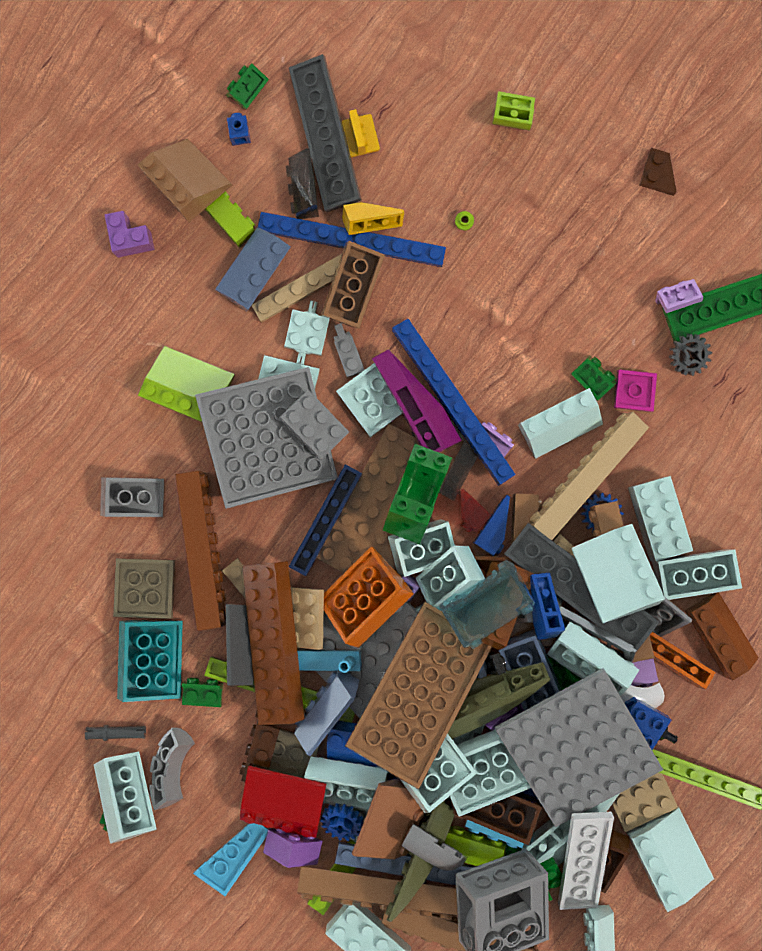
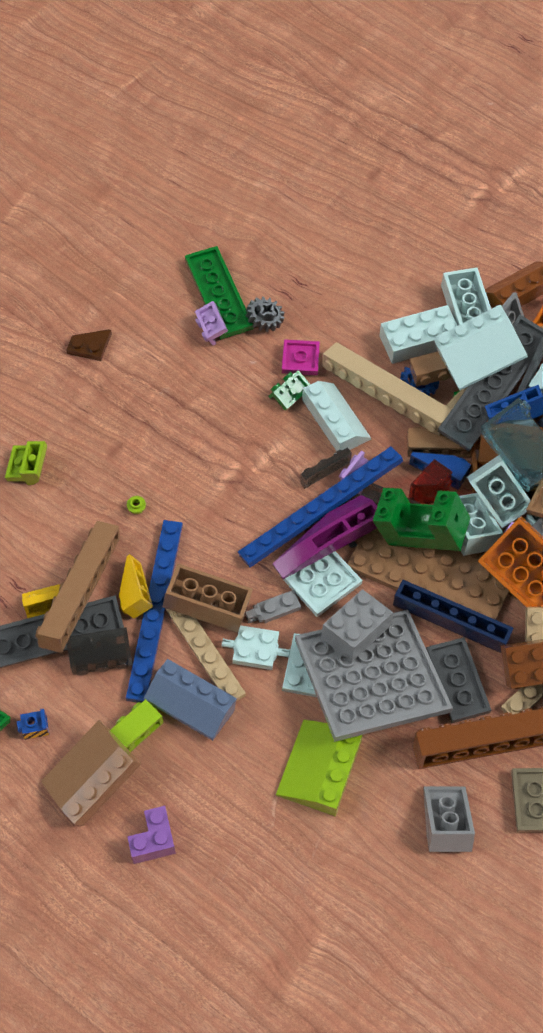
camera: 95 degrees left, 25 degrees down
(264, 520) = (460, 679): none -> dark grey plate
(365, 161) = (78, 587): none -> medium nougat brick
(499, 408) = (325, 467): none -> clear smoke plate

